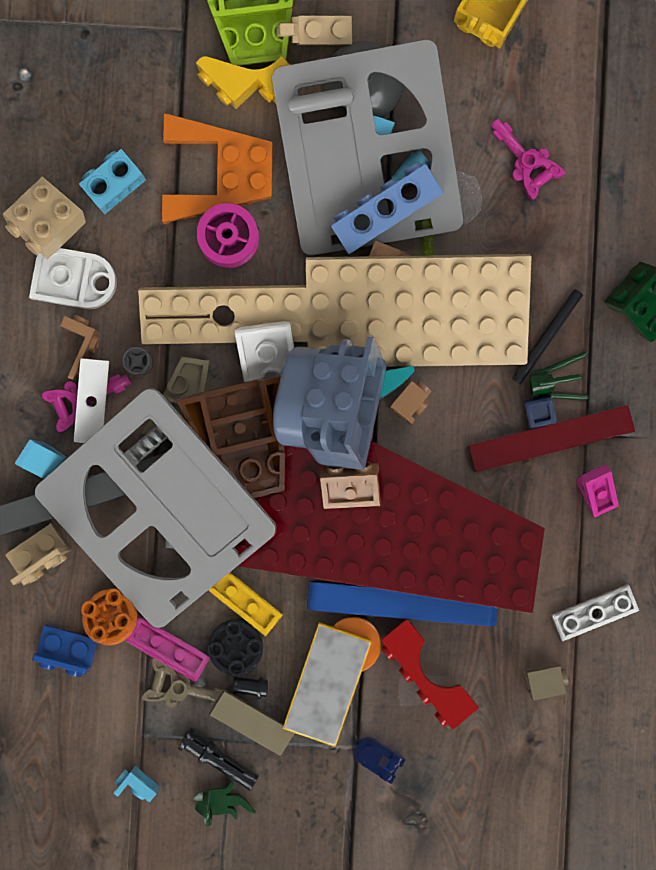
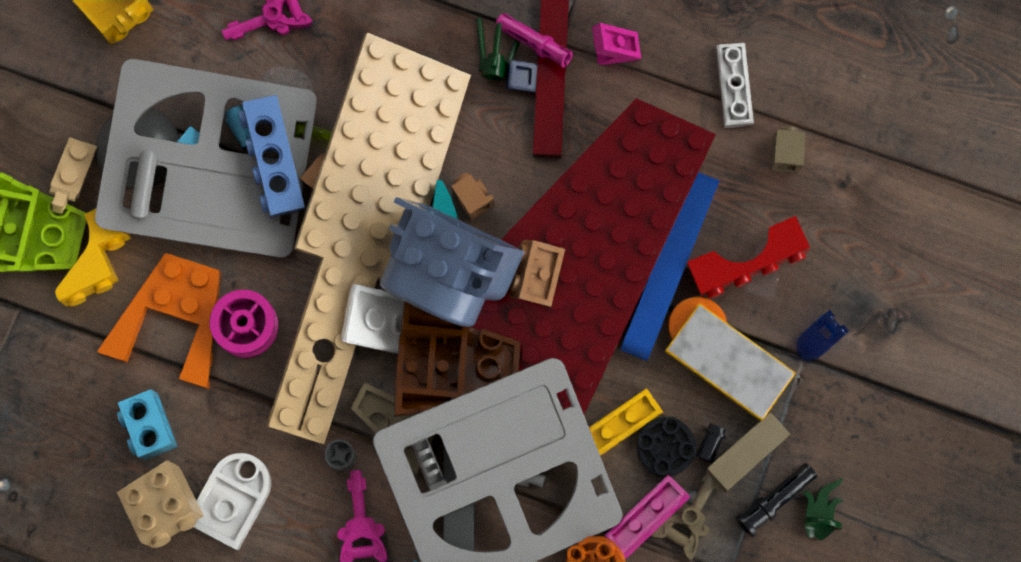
camera: 70 degrees left, 10 degrees down
(90, 344) = (285, 505): medium nougat bracket -> none
(92, 382) = (347, 505): white tile -> none
(547, 336) = (450, 48): black bar -> none
(575, 422) = (541, 44): none -> dark pink pin

